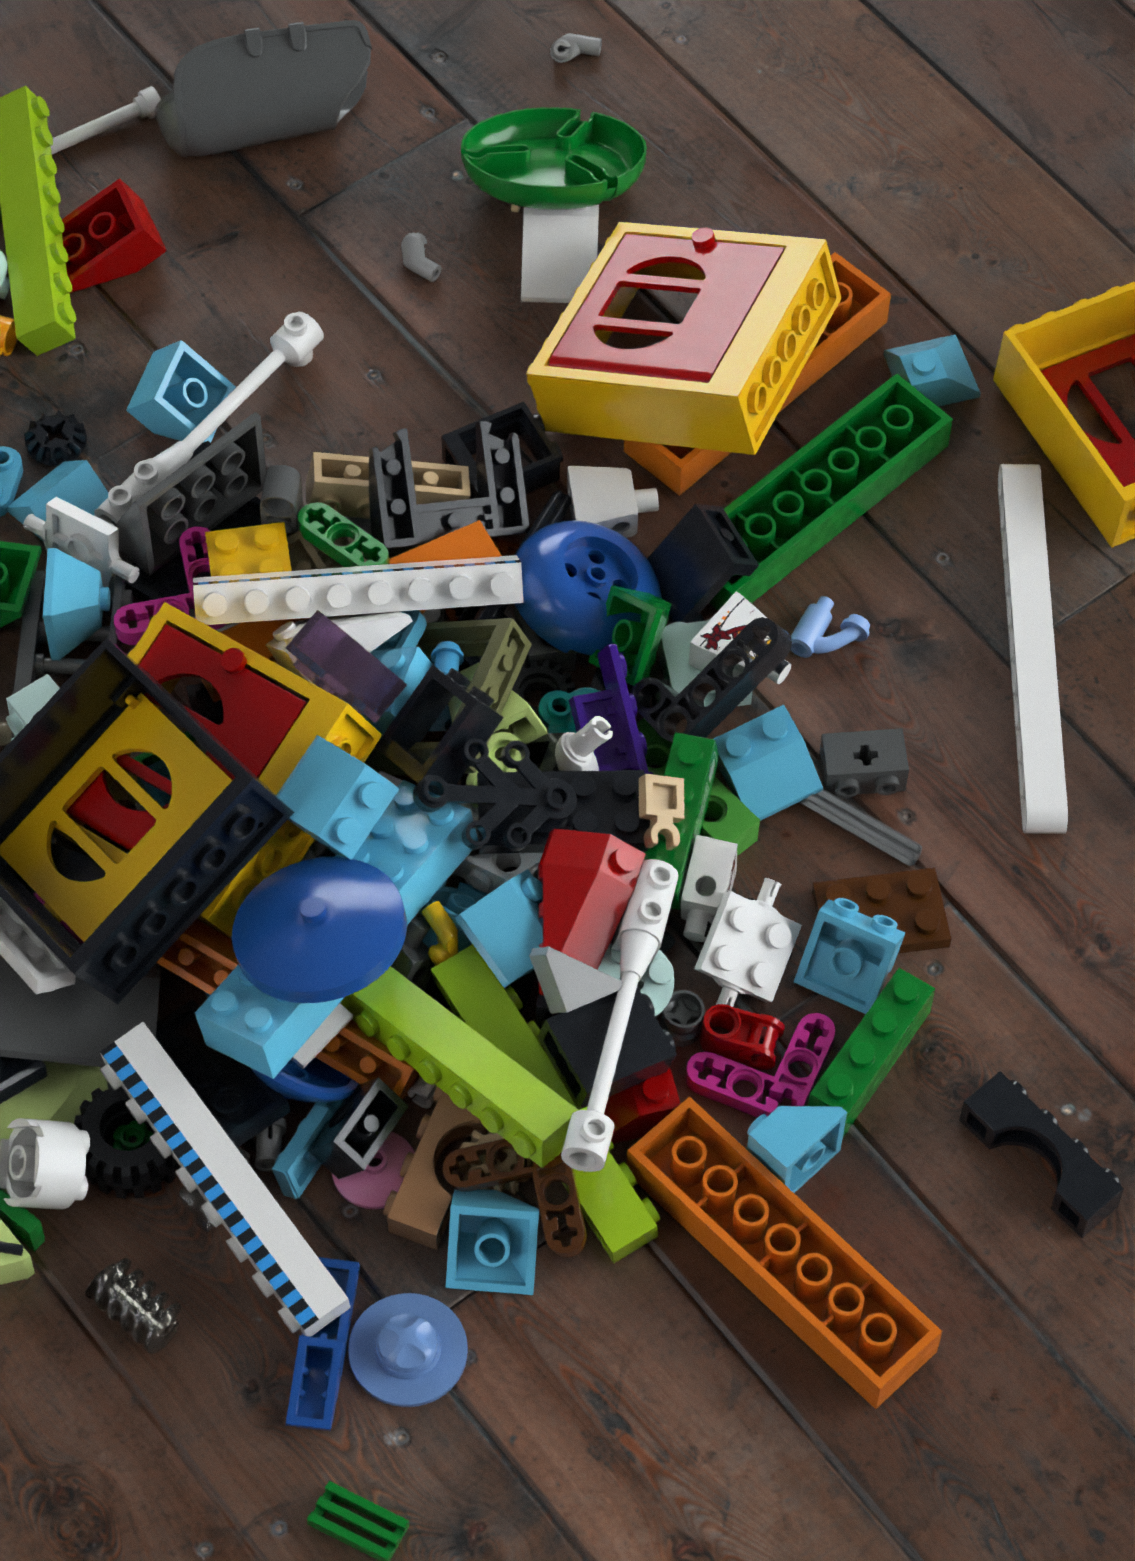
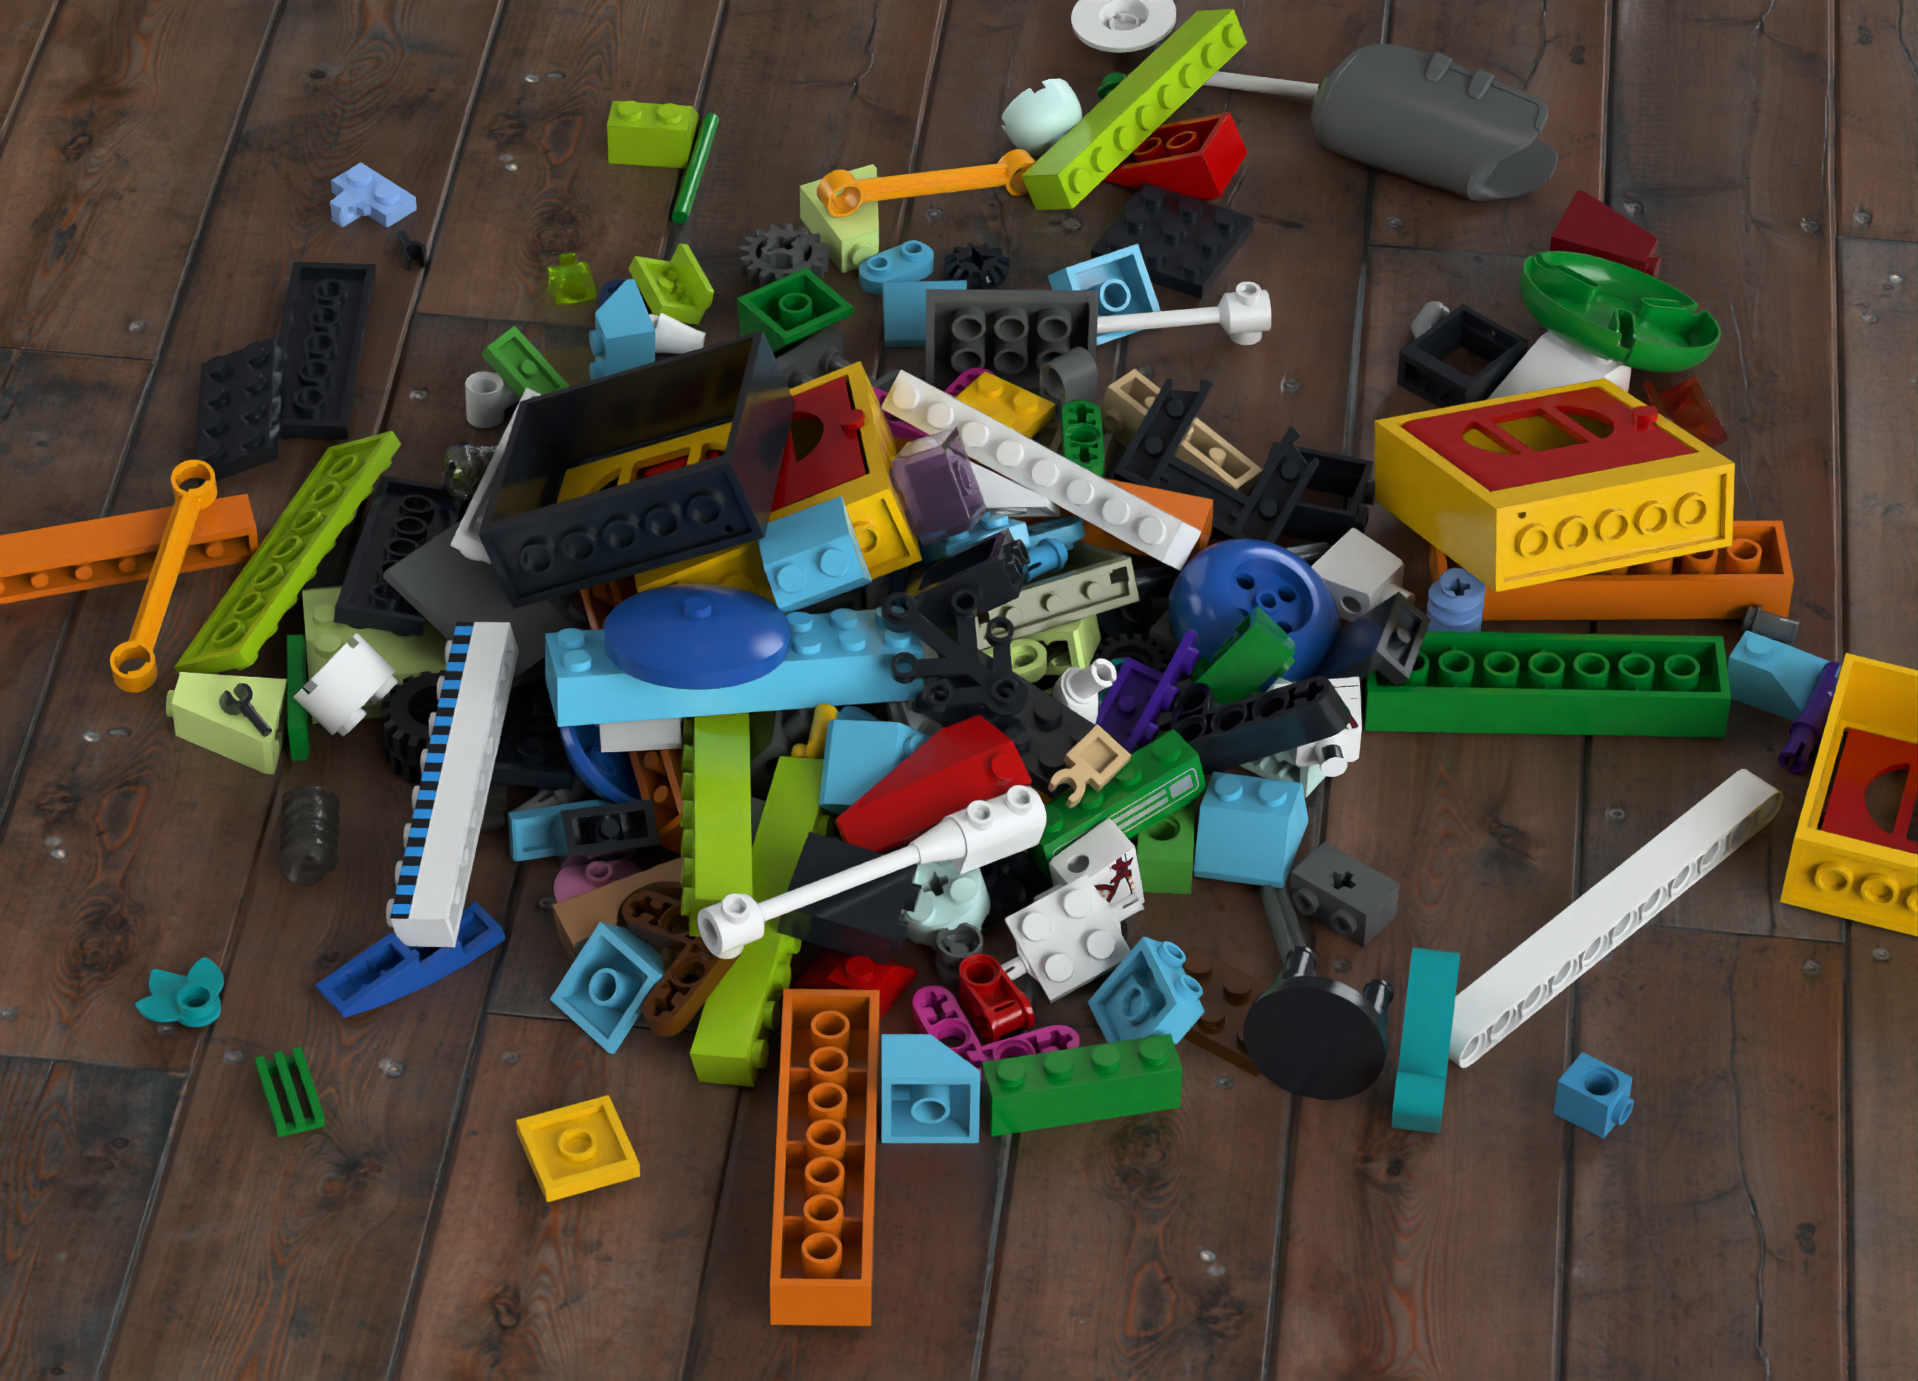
camera: 45 degrees right, 15 degrees down
(71, 602) = (823, 342): medium azure slope -> none
(84, 539) = (891, 328): white plate -> none
(165, 305) = (1179, 237): none -> black plate
(187, 1511) = (182, 998): none -> teal plate
(407, 1350) = (471, 1018): medium blue hat -> none
(459, 101) = (1601, 232): none -> dark red slope
(483, 299) = (1444, 386): none -> black window
(569, 982) = (858, 818): light grey slope -> none
(573, 45) = (1759, 262): light grey arm -> none
(607, 1390) = (577, 1148): none -> yellow plate
(665, 204) = (1689, 409): none -> clear red bracket
(711, 479) = (1456, 602): none -> medium blue piece
(814, 622) = (1423, 781): light blue plant -> none
(880, 340) = (1770, 625): none -> dark grey pin
(993, 890) = (1318, 1032): none -> black piece
(994, 400) = (1808, 729): none -> dark purple pin
(1006, 1116) = (1132, 1298): black arch -> none
(1052, 839) = (1425, 1040): none -> teal beam

